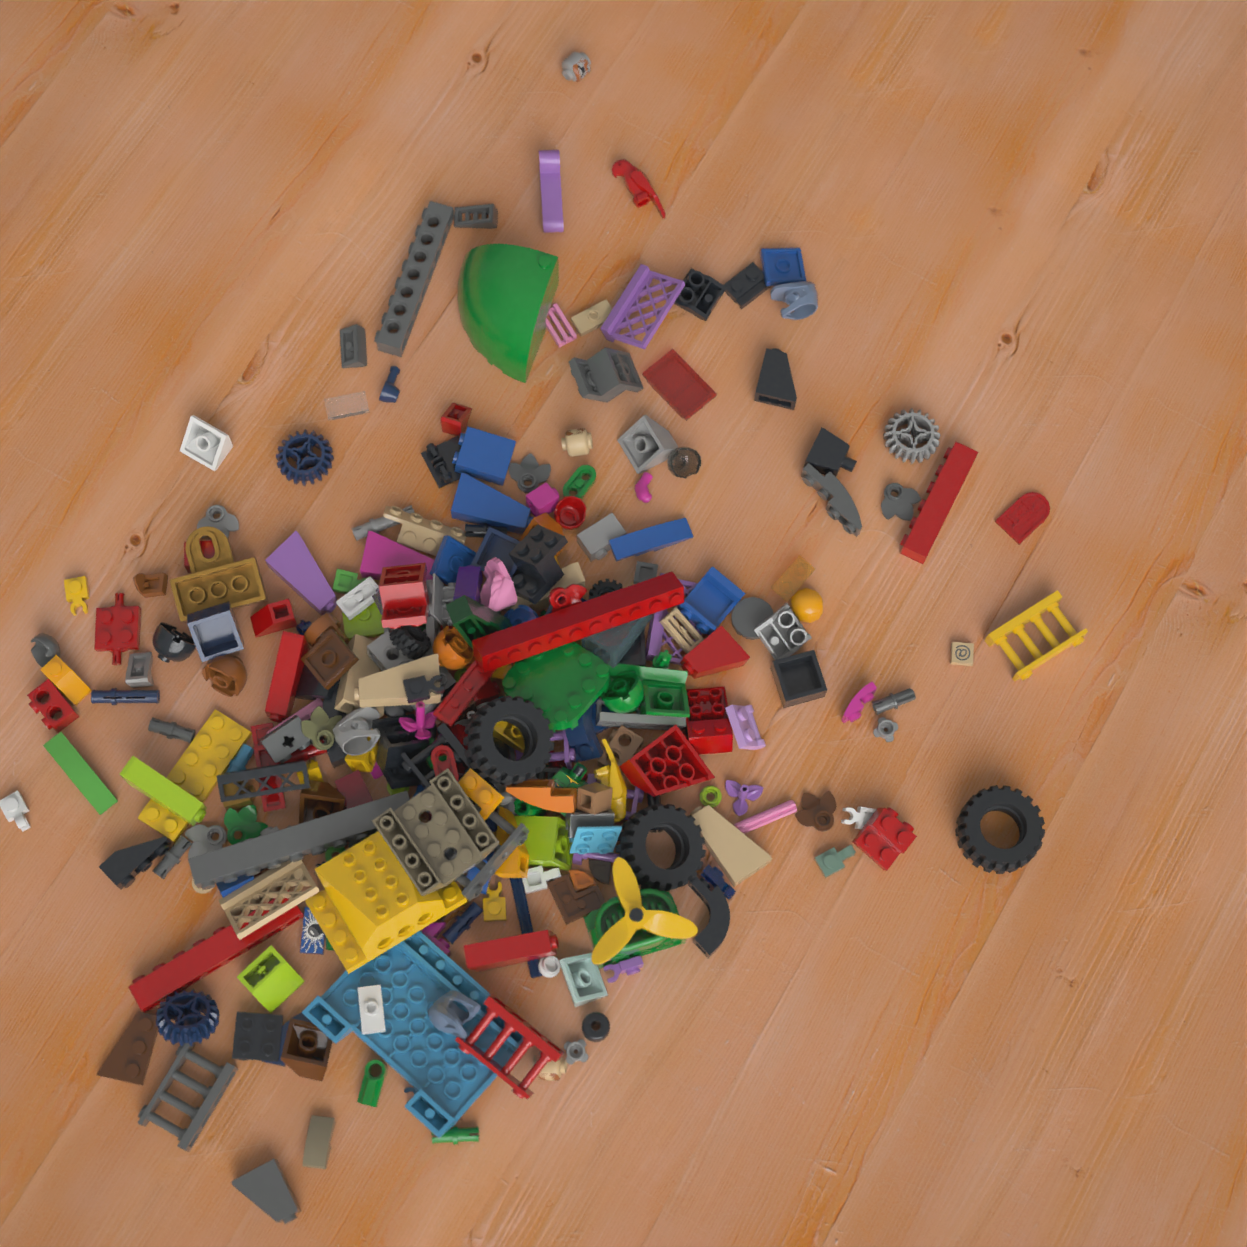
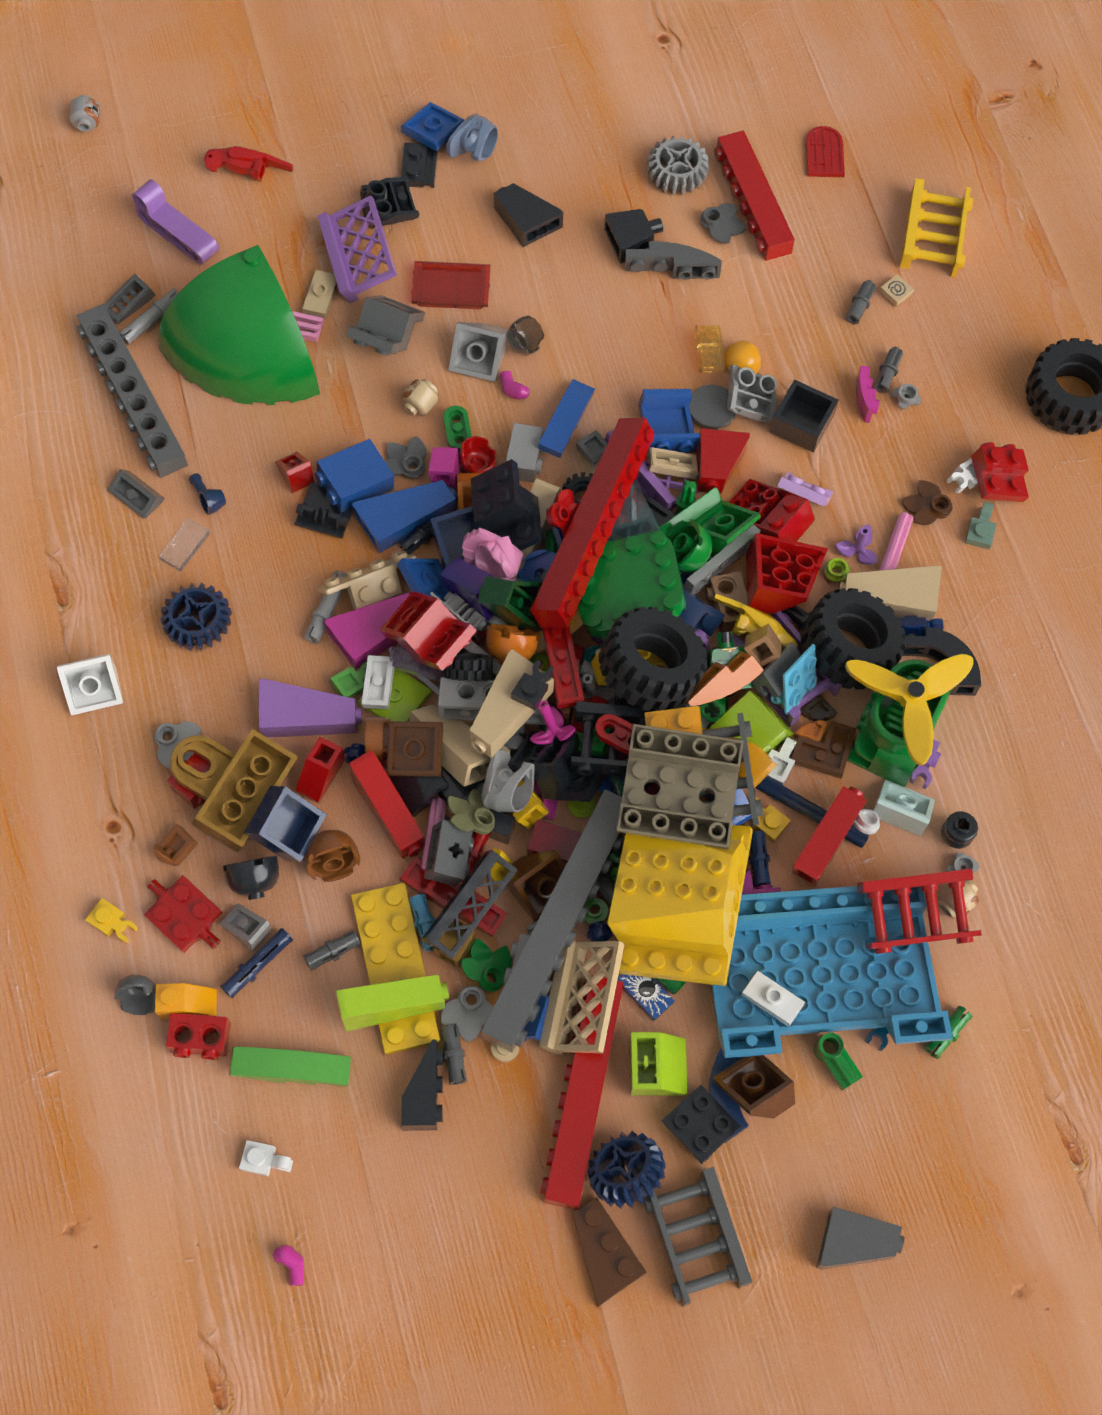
camera: 45 degrees left, 5 degrees down
(318, 1142) = (849, 1156): dark tan slope -> none
(448, 1017) = (846, 939): sand blue helmet -> none
(475, 240) = (148, 318): none -> light grey pin
(928, 639) = (860, 302): none -> dark grey axle

